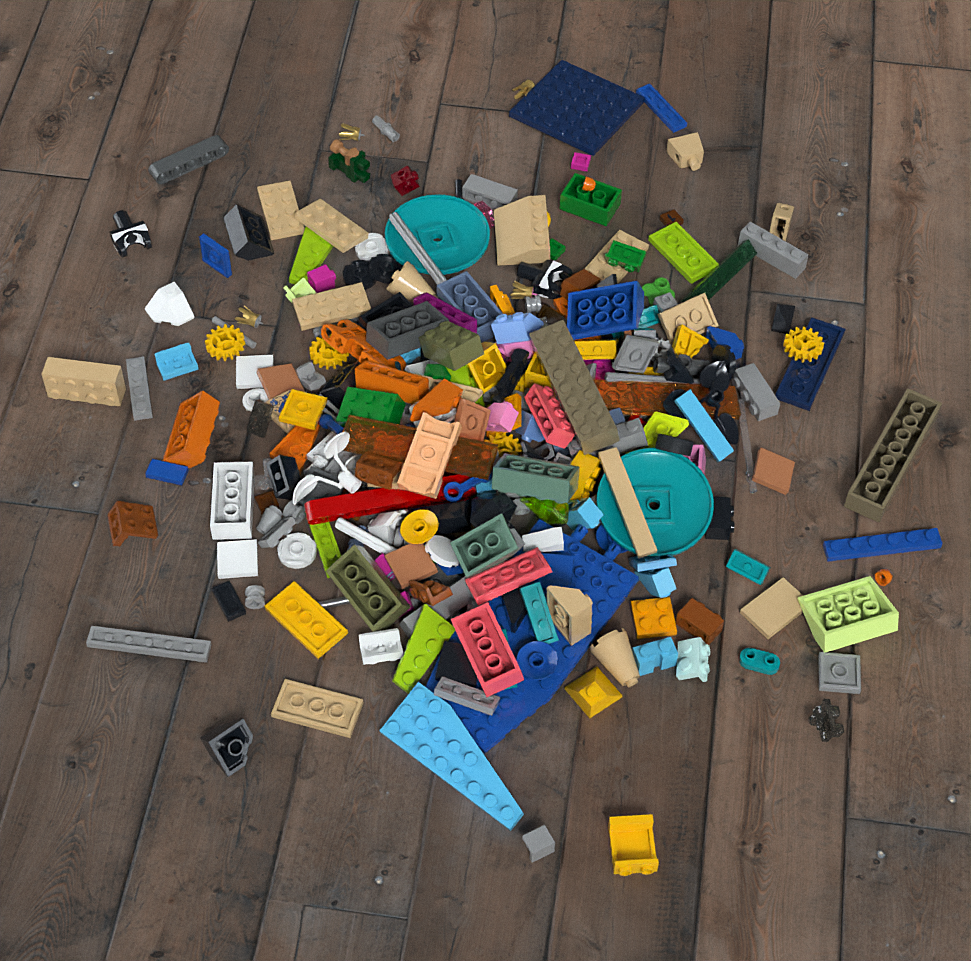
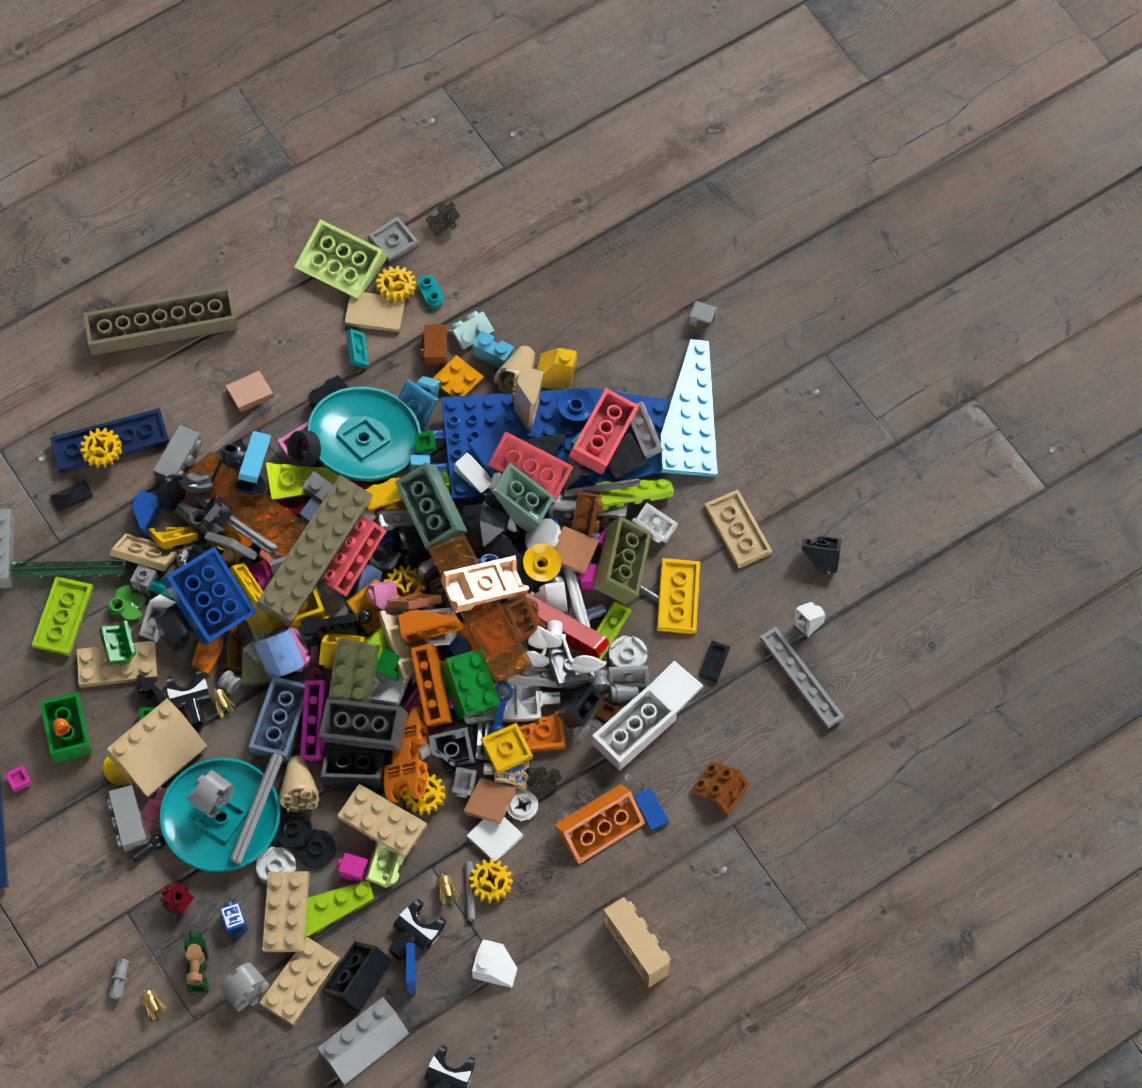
camera: 130 degrees left, 10 degrees up
(139, 388) = (594, 909): light grey plate -> none
(175, 361) = (546, 899): medium azure bracket -> none
(185, 683) = (809, 618): none -> white slope
(203, 209) = (363, 1041): none -> light grey slope
(241, 281) = (414, 931): none -> black connector
(254, 597) = (696, 641): light grey wheel -> none
(305, 172) = (244, 986): none -> light grey brick
(359, 201) = (233, 918): none -> brick
(442, 619) = (603, 487): none -> flat silver bar
(450, 223) = (211, 793): none -> light grey brick
(501, 300) = (253, 702): light orange bracket -> none
(539, 613) = (542, 423): teal plate -> none
(575, 261) = (150, 690): none -> black slope
(579, 281) = (180, 657): dark orange brick -> none
(605, 532) = (425, 442): none -> green plate
(627, 502) = (385, 445): tan tile -> none
(632, 844) = (649, 264): yellow panel -> none
(671, 217) = (27, 656): reddish brown tile -> none
(787, 639) = (396, 284): none -> yellow gear
(882, 544) = (252, 283): blue plate -> none
(887, 577) = (283, 262): orange hinge -> none

